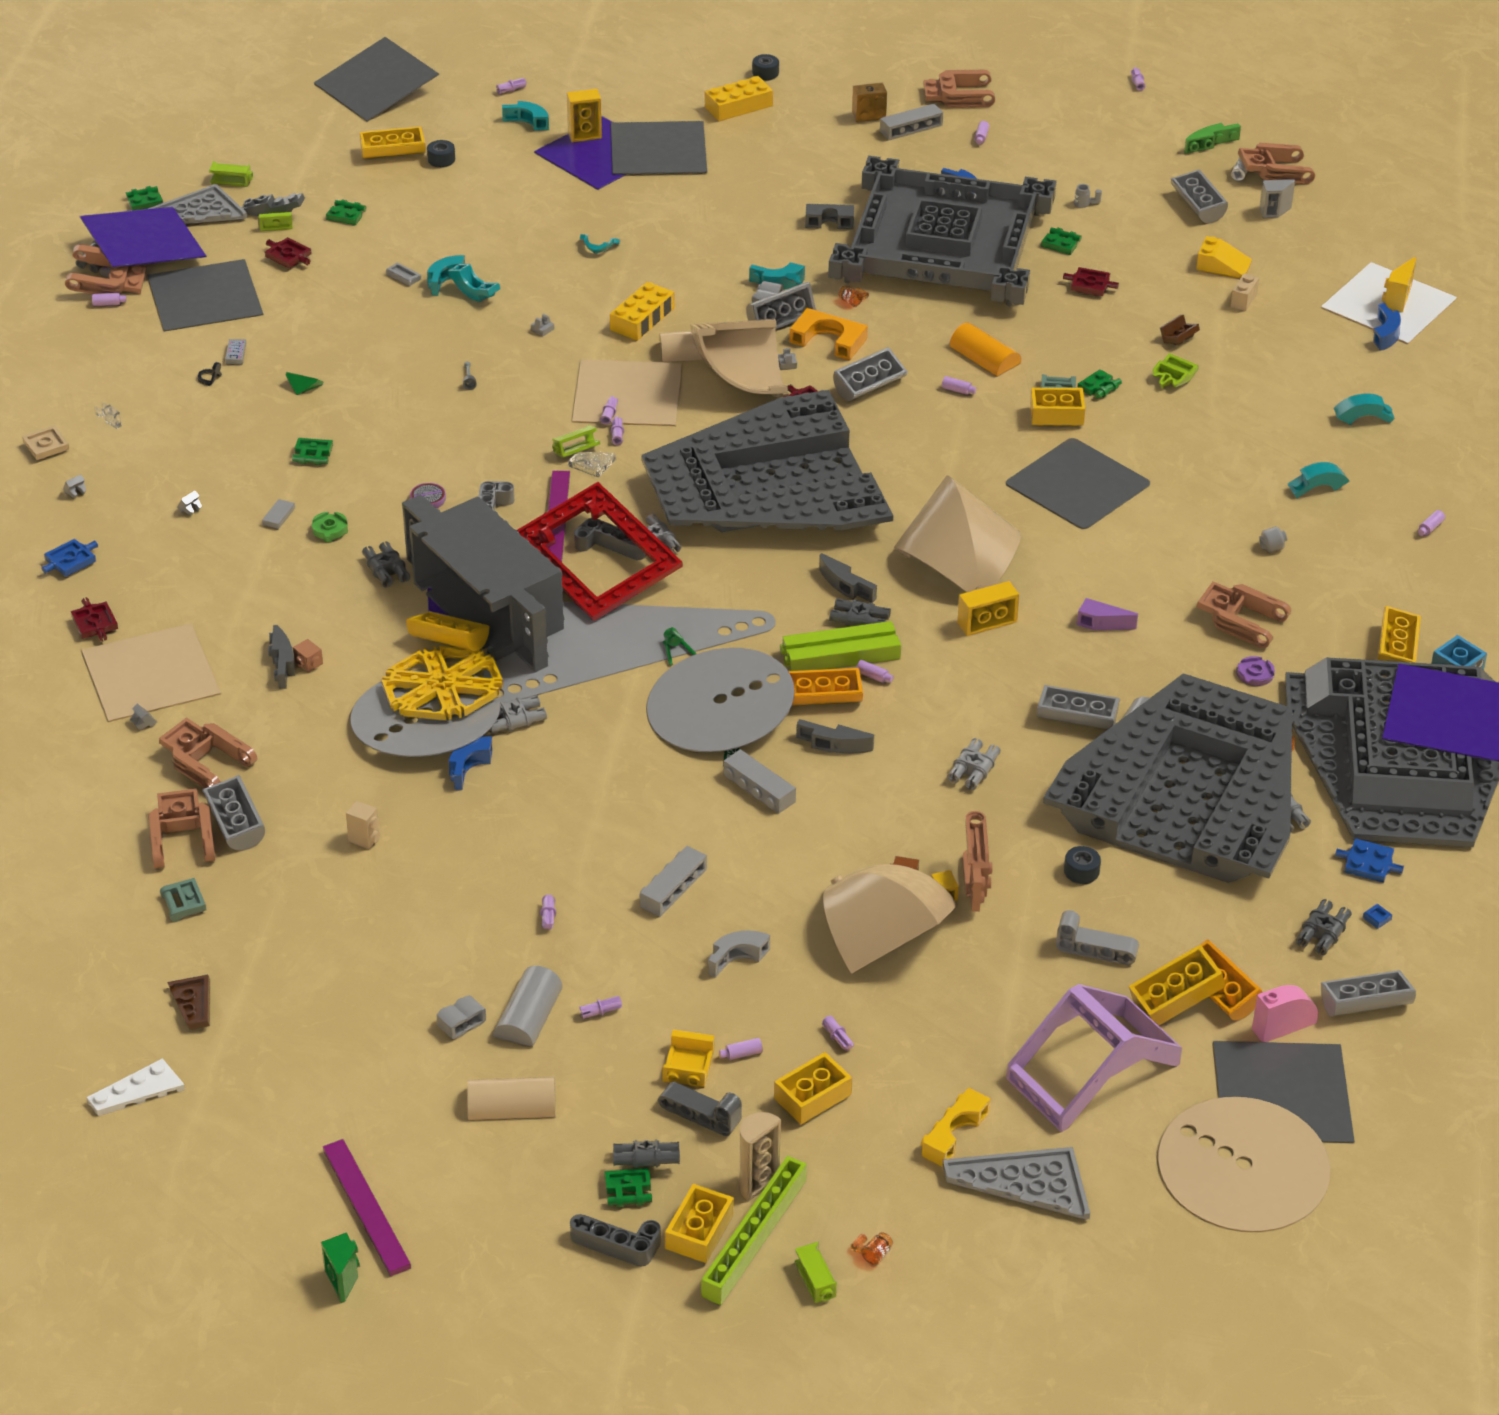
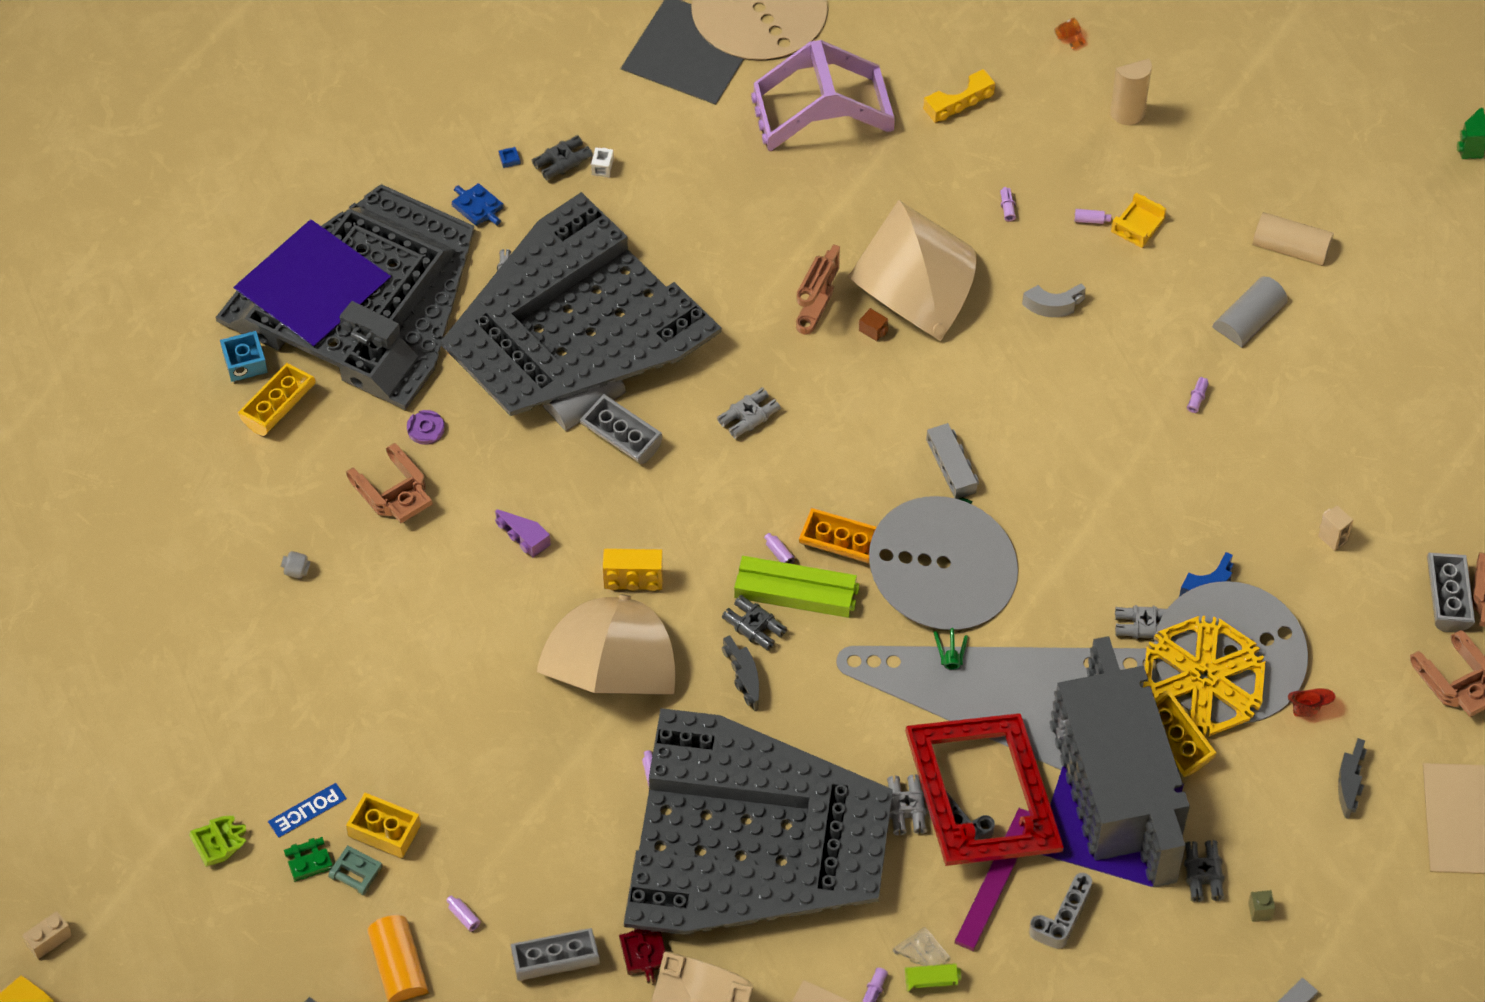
camera: 155 degrees left, 15 degrees up
(307, 655) = (1324, 768): nougat brick -> none
(328, 552) = (1261, 905): none -> olive brick
(336, 526) = (1244, 965): bright green plate -> none
(337, 692) = (1309, 702): none -> clear red piece
(367, 1207) = (1437, 192): magenta tile -> none
(431, 492) = (1123, 964): tile -> none
(460, 1017) = (1309, 319): light grey brick -> none
(600, 1007) = (1190, 290): lavender axle -> none
(617, 1242) = (1258, 96): dark grey beam -> none
(628, 1181) = (1230, 137): green plate -> none
(646, 1153) = (1211, 159): dark grey pin -> none
(673, 881) = (1076, 385): light grey brick -> none
(699, 1223) = (1191, 83): yellow brick -> none
(715, 1115) = (1145, 173): dark grey beam -> none
(753, 1230) = (1162, 58): lime brick -> none
(812, 1088) = (1054, 156): yellow brick -> none
(815, 1273) = (1121, 27): lime window -> none
(837, 740) = (856, 480): dark grey slope -> none
(948, 881) = (848, 298): yellow brick -> none
(1031, 1177) = (920, 41): light grey wing -> none
(1078, 483) = (426, 727): dark grey piece -> none
(1082, 864) = (719, 279): black wheel -> none
(1093, 942) = (767, 212): light grey beam -> none
(1126, 412) = (307, 810): none -> blue sticker
(1177, 985) = (724, 128): yellow brick -> none
(1178, 330) = (166, 900): reddish brown bracket -> none
(1240, 993) = (683, 135): light orange brick -> none
(1280, 937) = (602, 162): none -> white brick
(1282, 1012) = (652, 86): bright pink brick -> none
(1318, 474) = (191, 618): teal arch -> none
(1361, 684) = (369, 326): none -> dark grey piece
(1363, 405) = (69, 697): teal arch -> none
(1366, 993) = (575, 83): light grey brick -> none
(1431, 523) = (126, 532): lavender cylinder -> none

